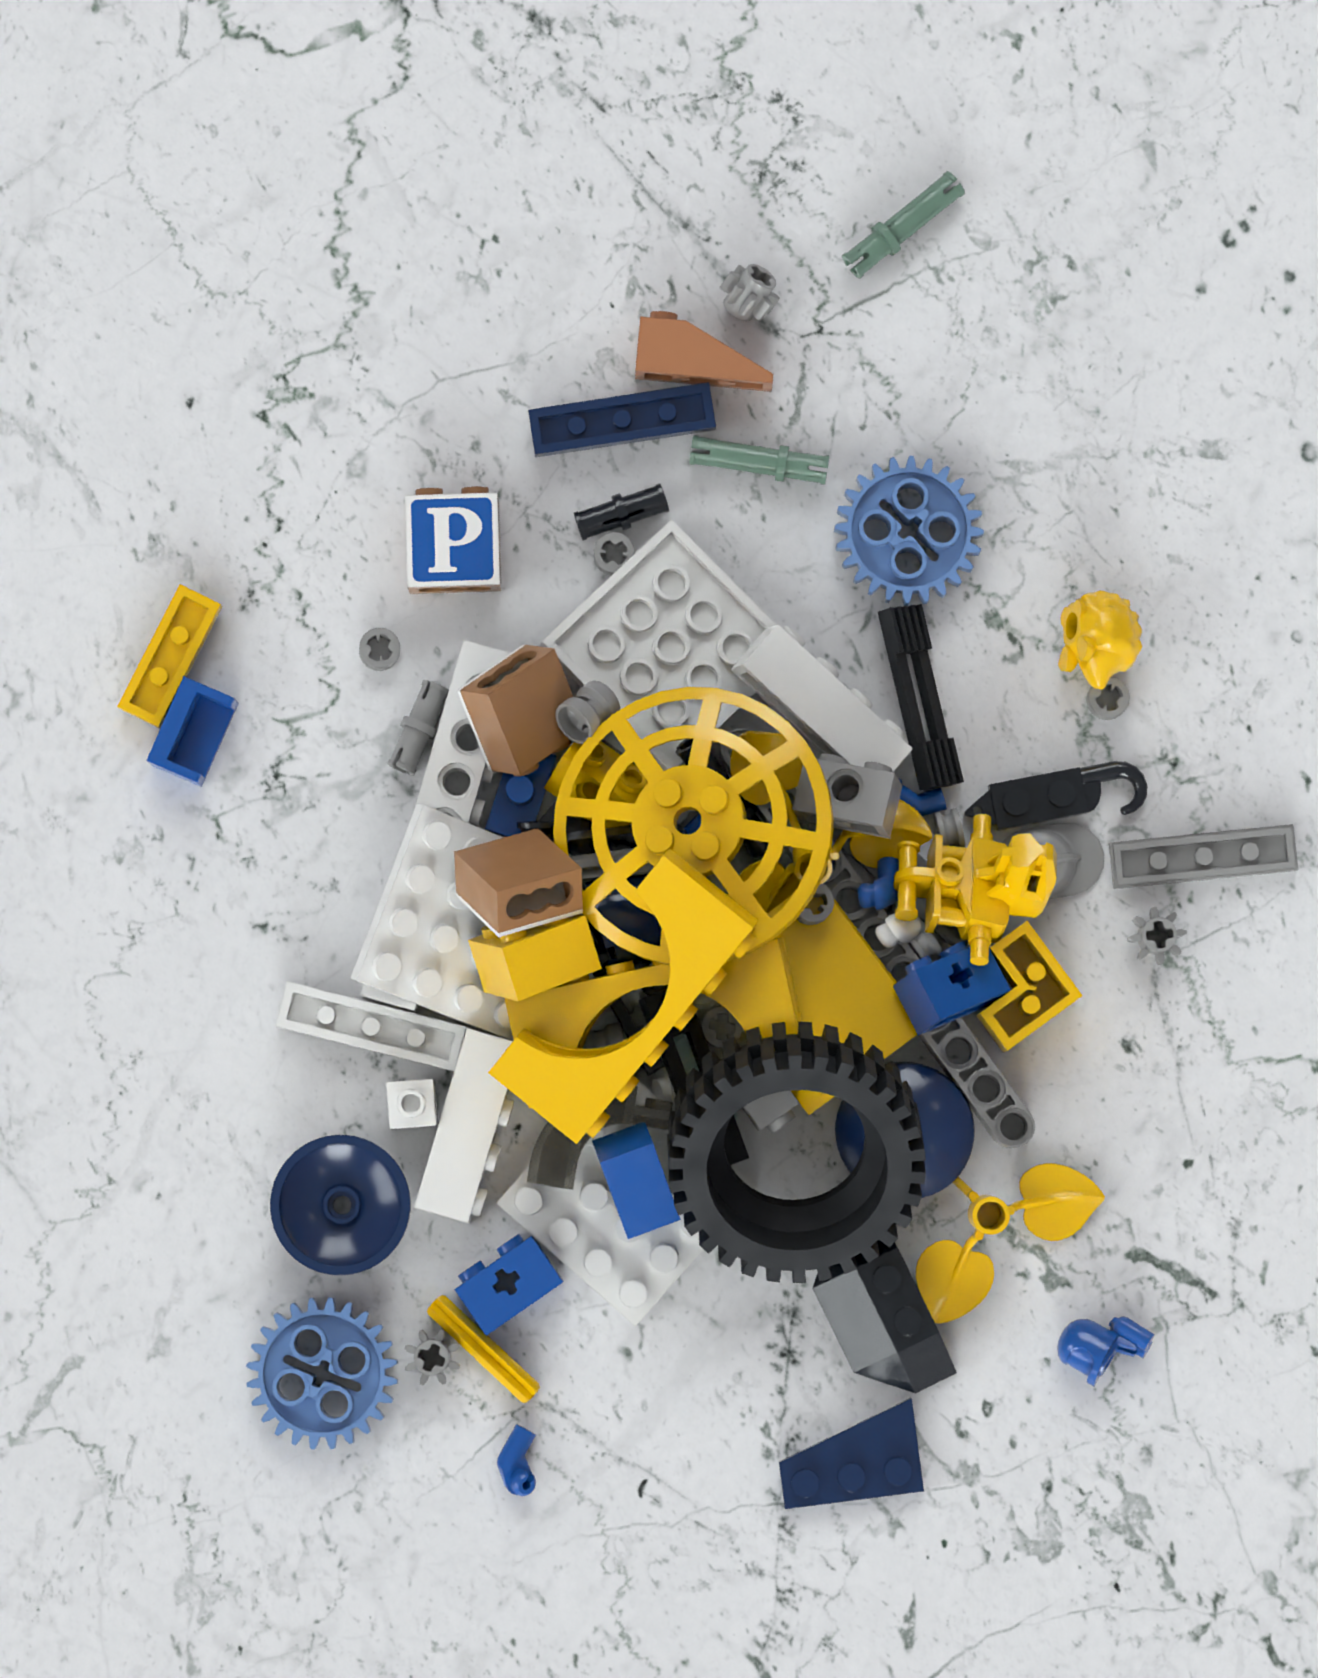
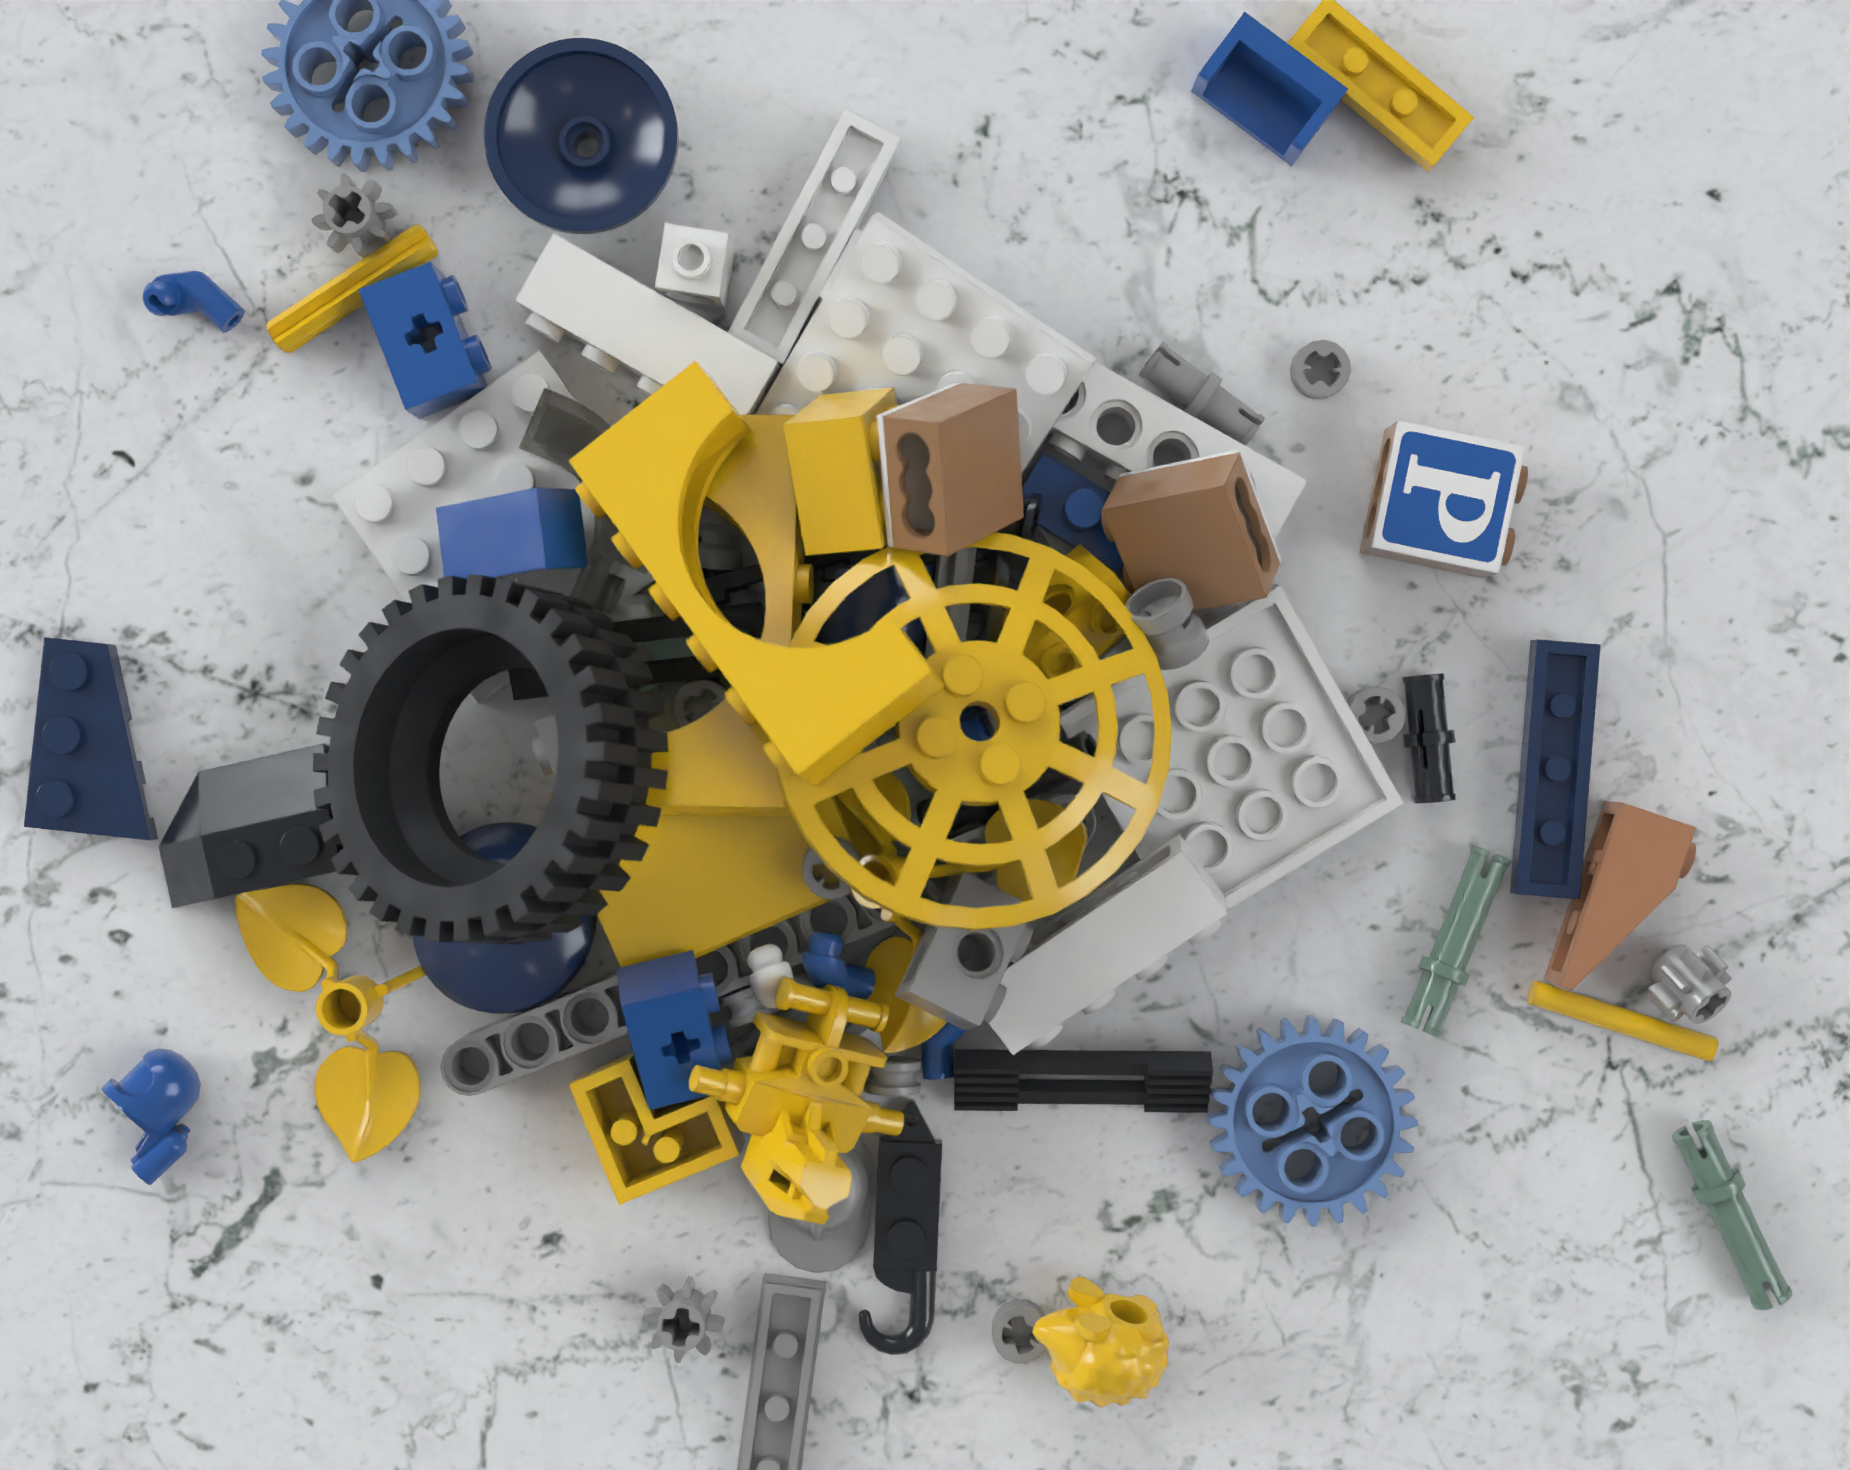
camera: 105 degrees right, 5 degrees up
(786, 331) = (1622, 1020): none -> yellow bar

